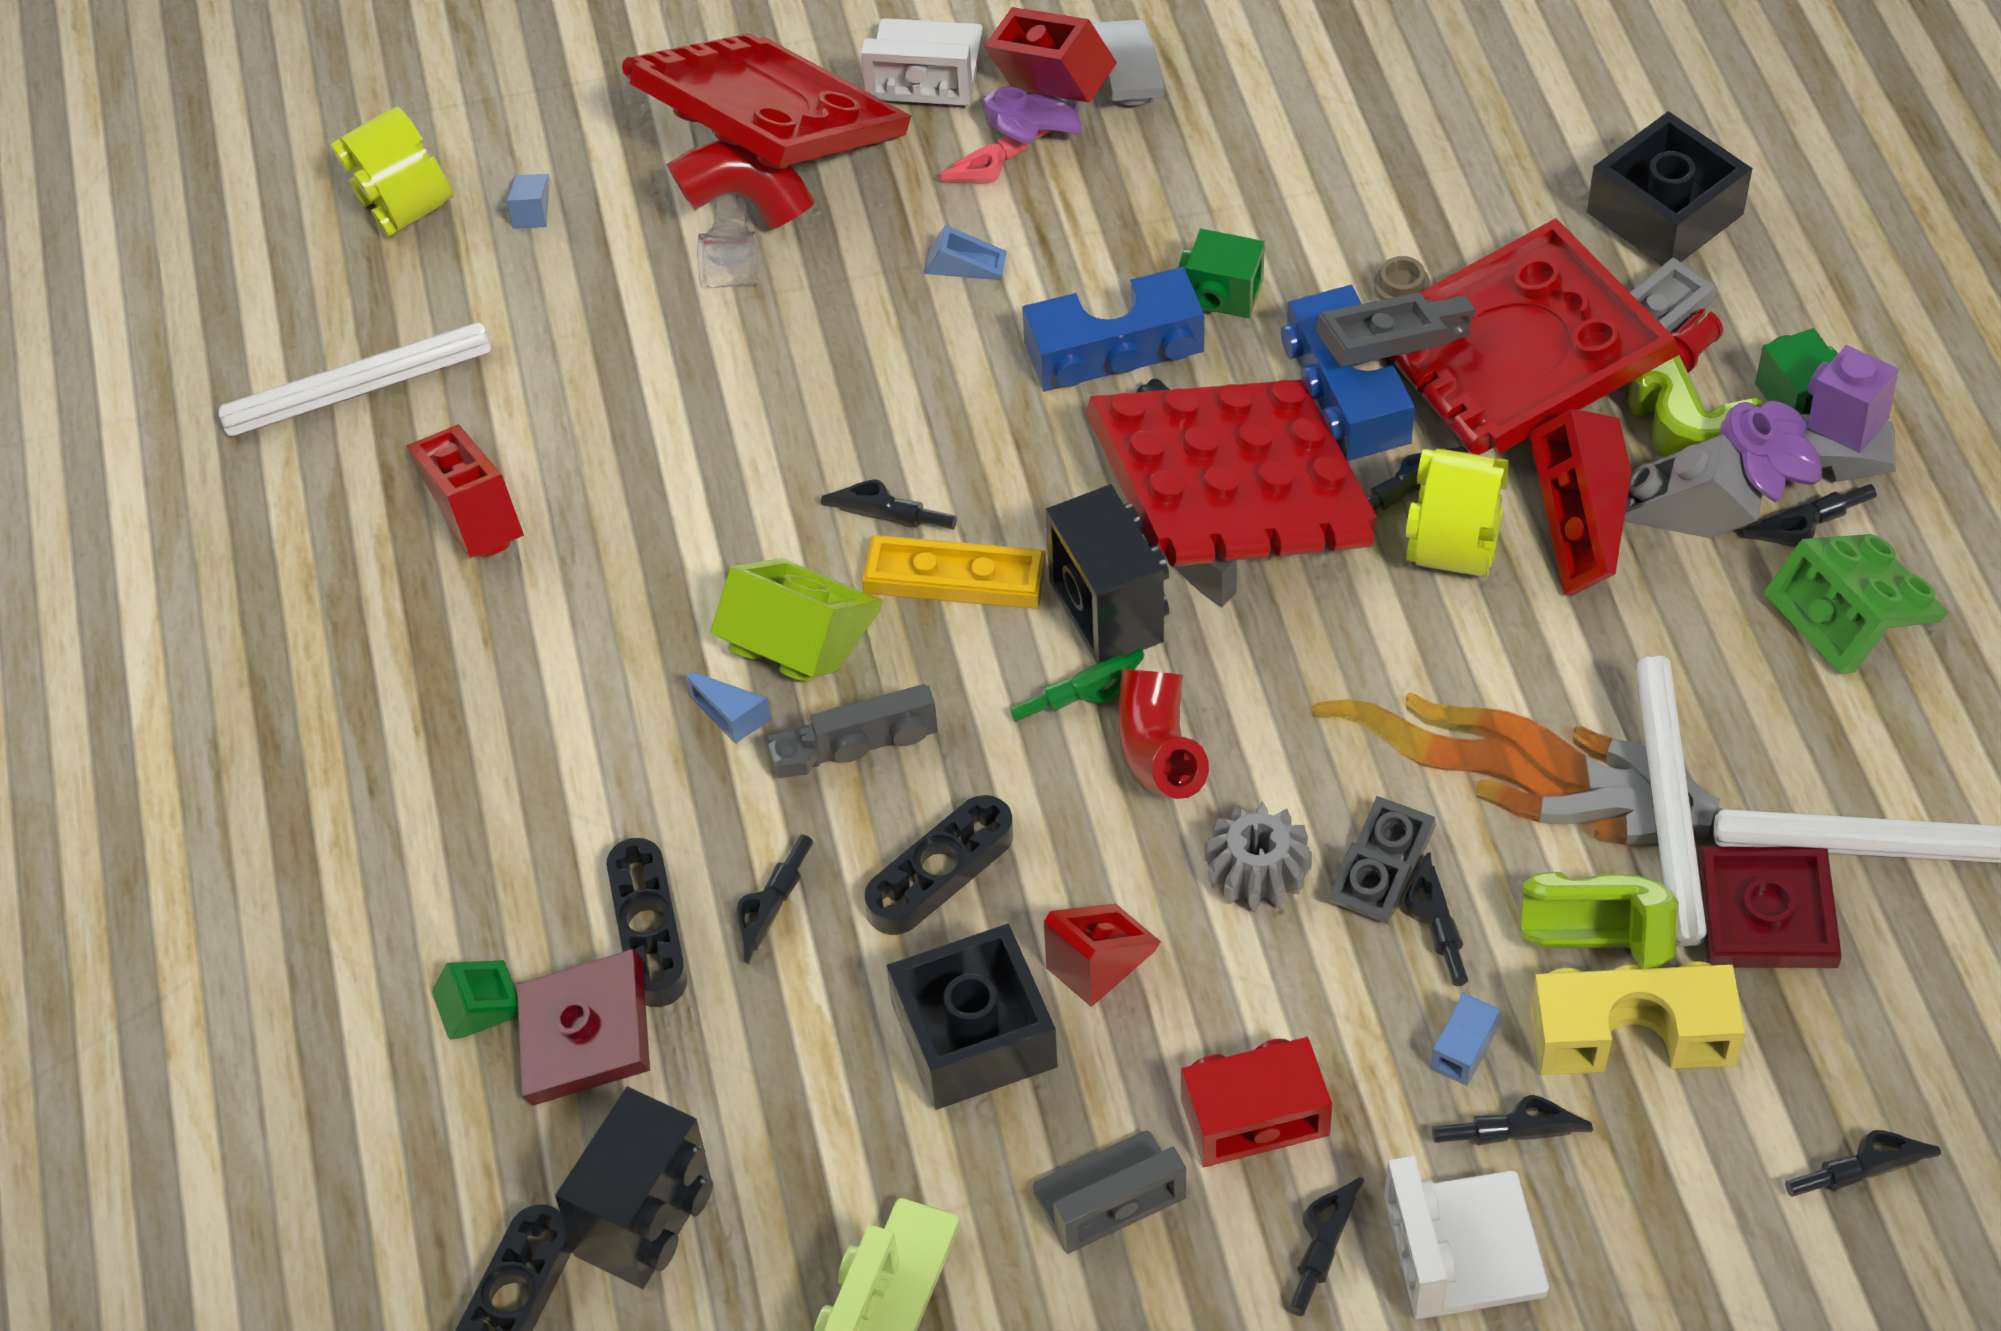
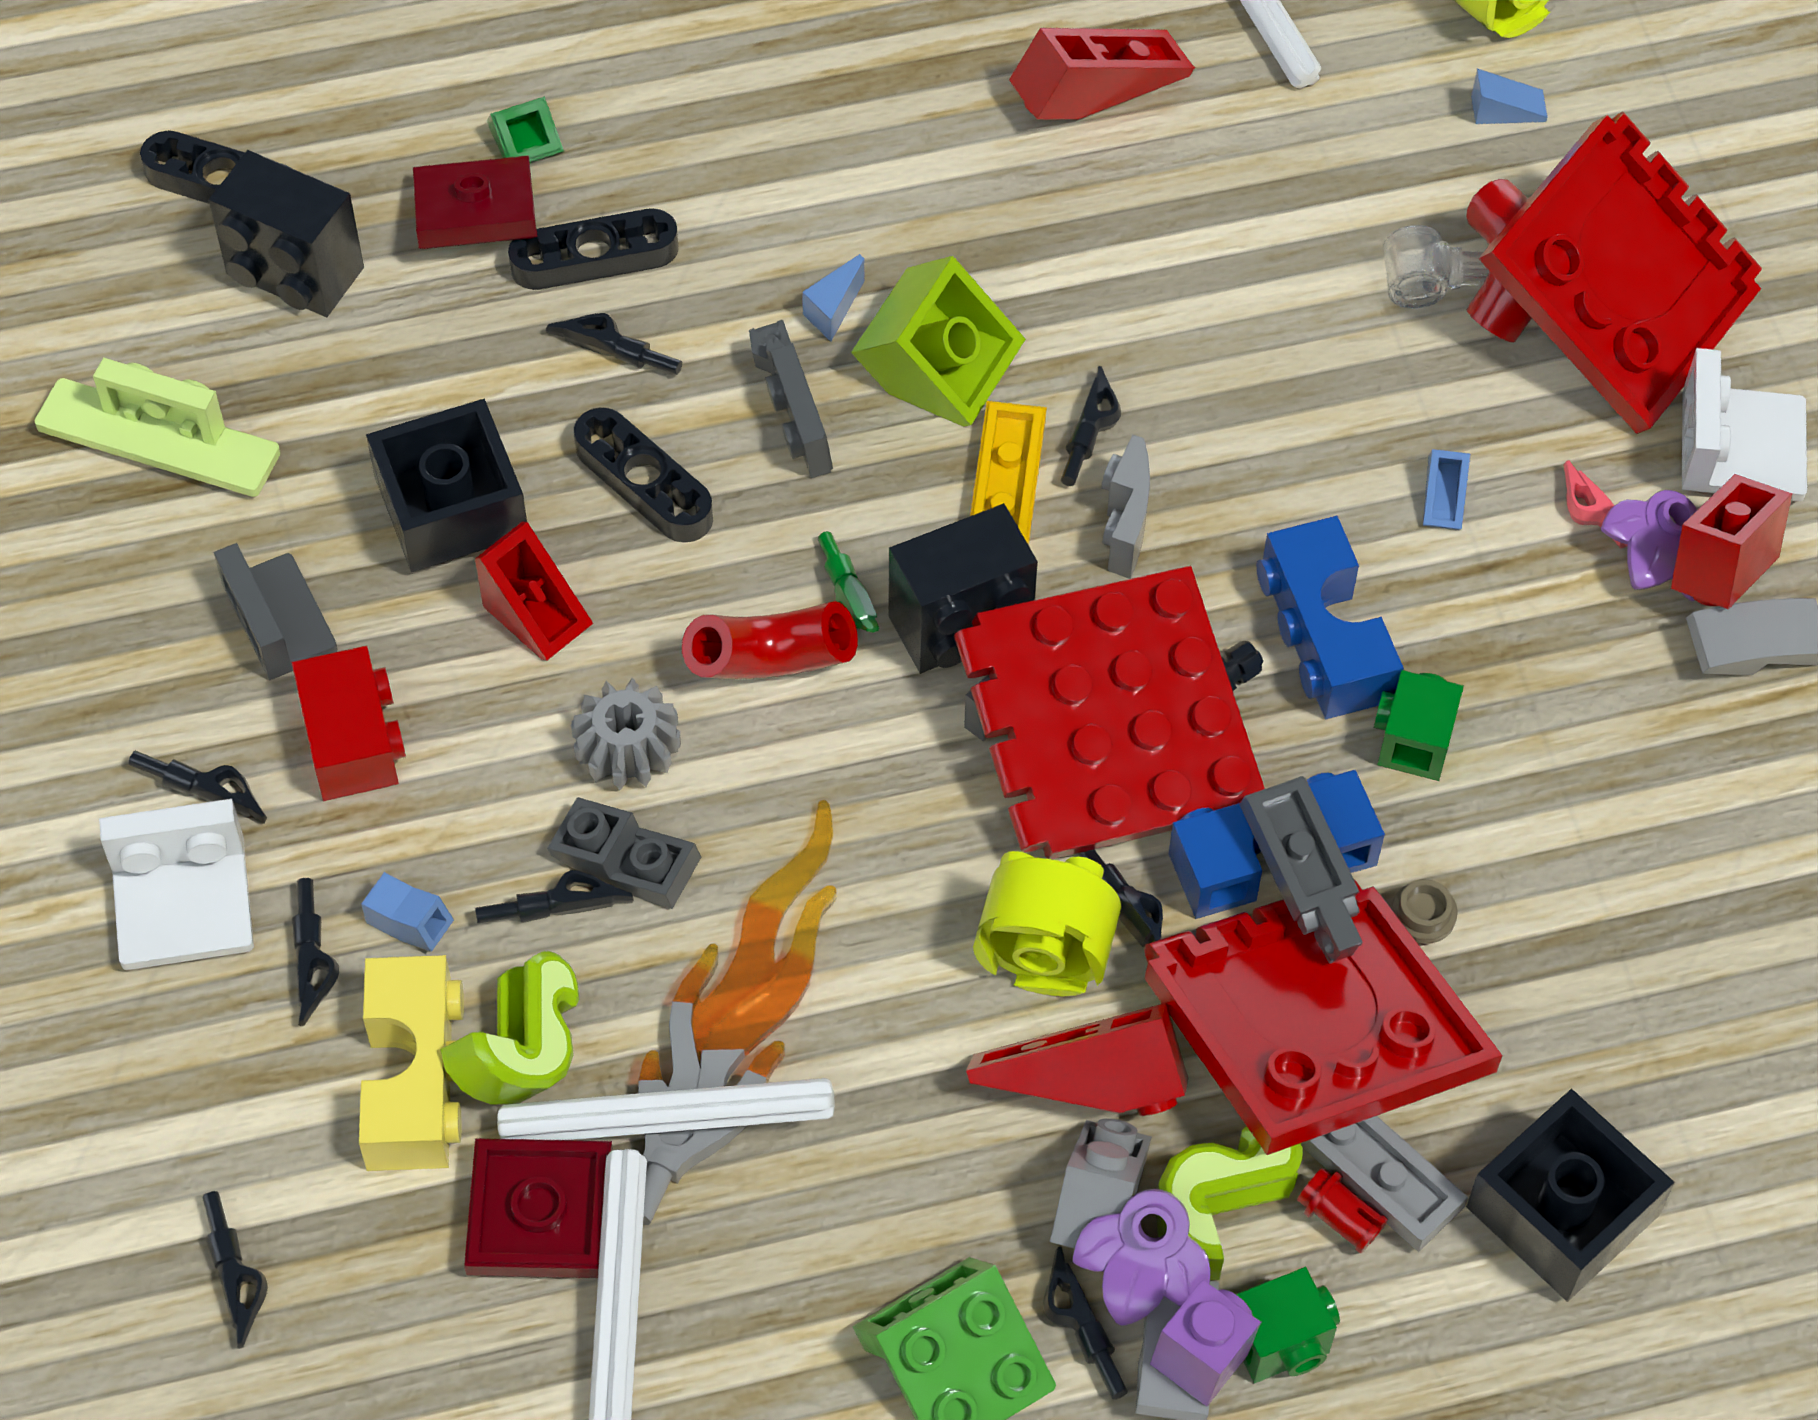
camera: 85 degrees right, 5 degrees up
(978, 463) = (1128, 487): none -> light grey slope

